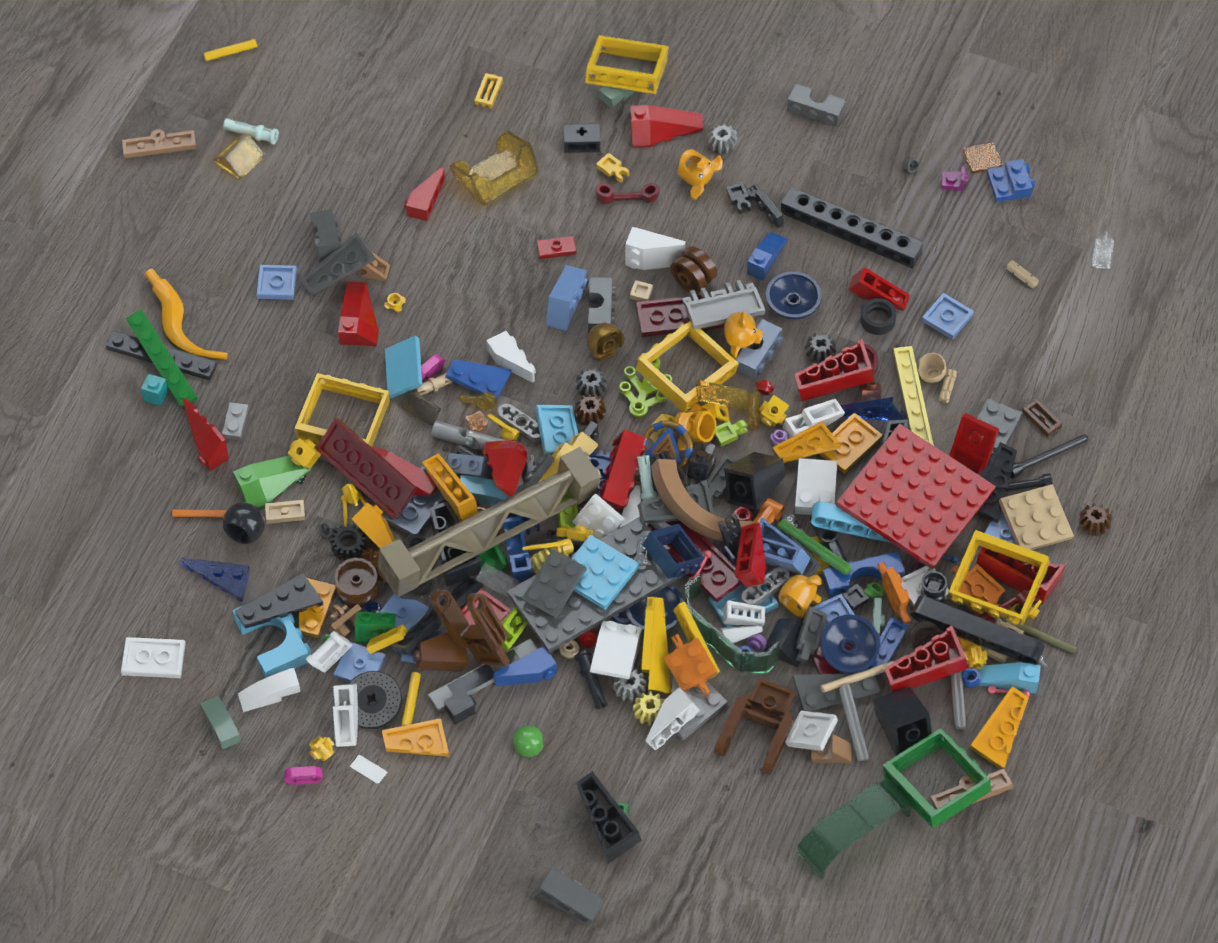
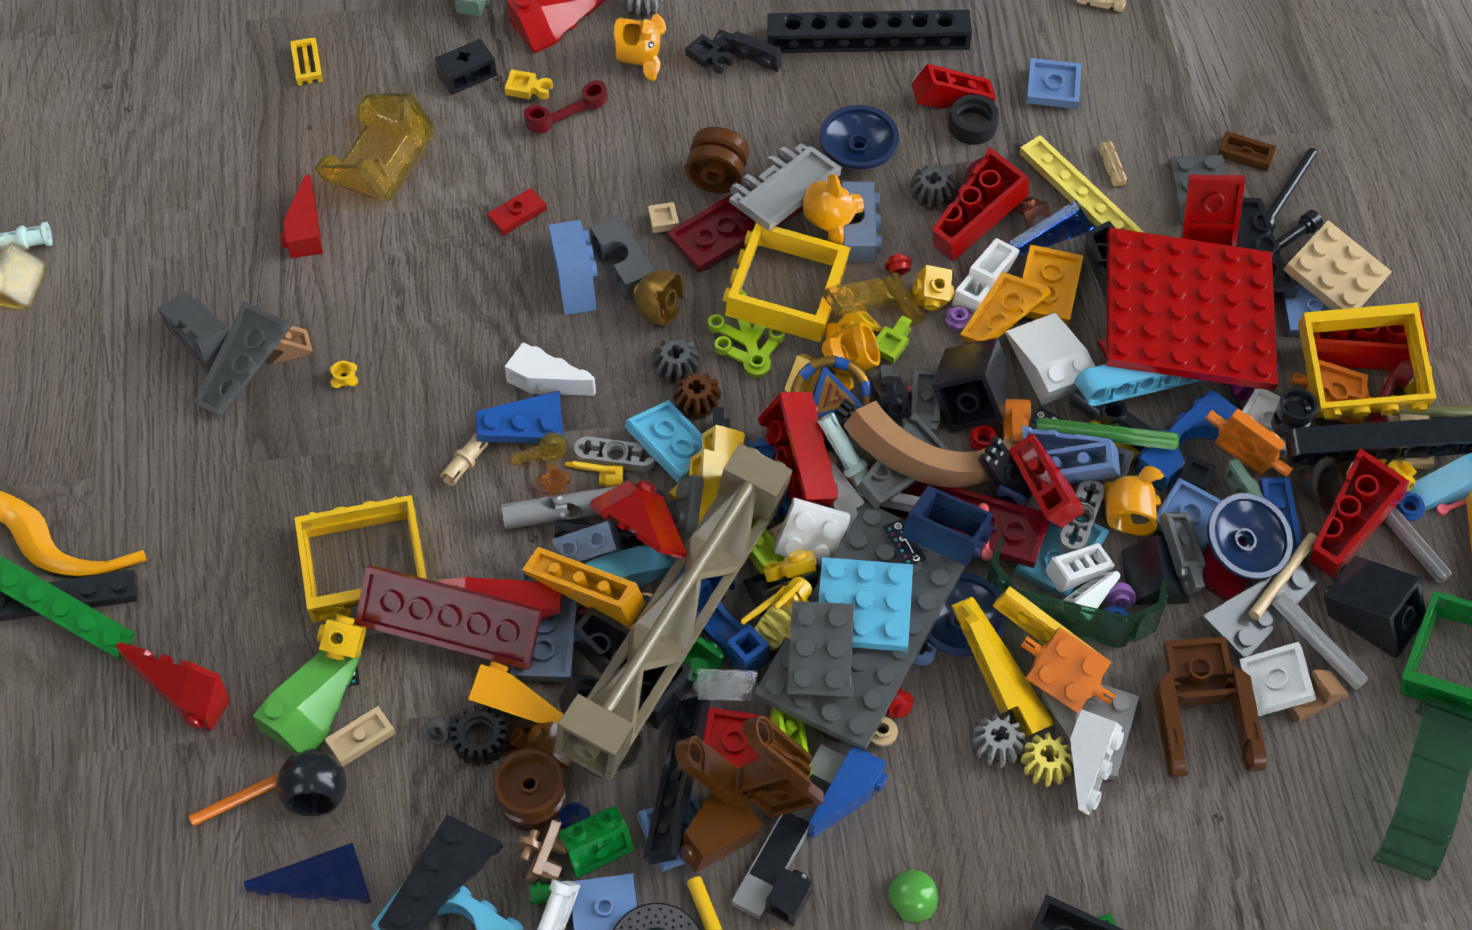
camera: 30 degrees left, 0 degrees up
(154, 390) = (63, 652): teal brick -> none
(235, 421) = (209, 640): light grey plate -> none
(276, 282) = (160, 421): medium blue plate -> none
(313, 619) = (495, 879): light orange wing -> none
(351, 496) = (444, 665): yellow plant -> none
(357, 317) = (305, 420): red wedge -> none
(386, 639) = (626, 850): yellow tile -> none
(403, 367) = (410, 453): medium azure tile -> none
(406, 610) = (627, 791): medium blue plate -> none
(421, 407) = (467, 497): clear smoke plate -> none
(432, 367) = (446, 441): dark pink beam -> none
(585, 661) = (930, 749): black pin -> none
(616, 649) = (954, 701): white slope -> none
(651, 250) = (649, 158): white slope -> none
(765, 255) = (788, 109): blue slope -> none
(874, 591) = (1215, 454): bright green plate -> none
(932, 367) = (1083, 149): tan hair -> none
(1095, 519) = (1401, 240): reddish brown gear -> none

